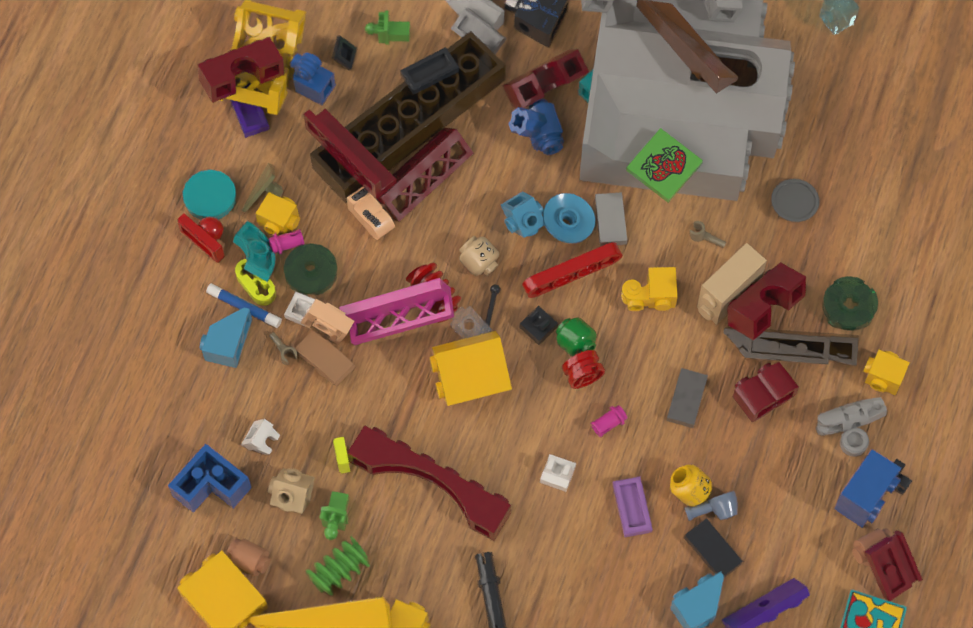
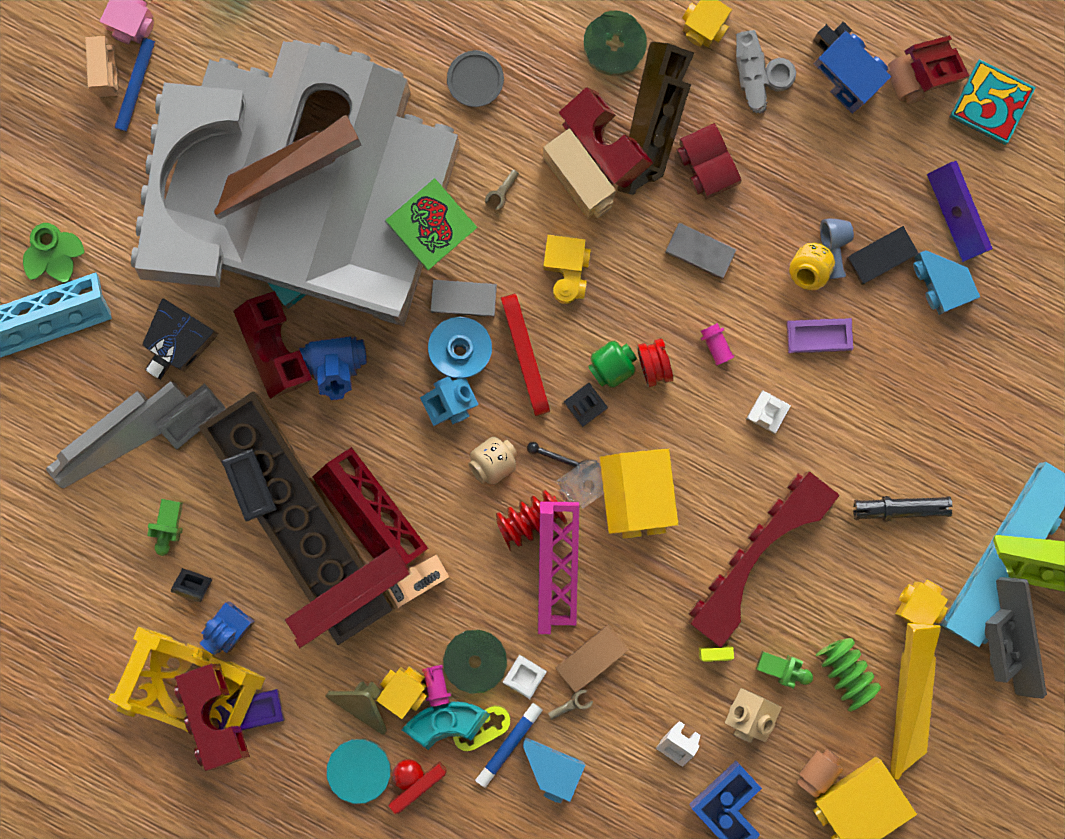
camera: 85 degrees left, 20 degrees up
(328, 320) = (556, 650): light nougat brick -> none

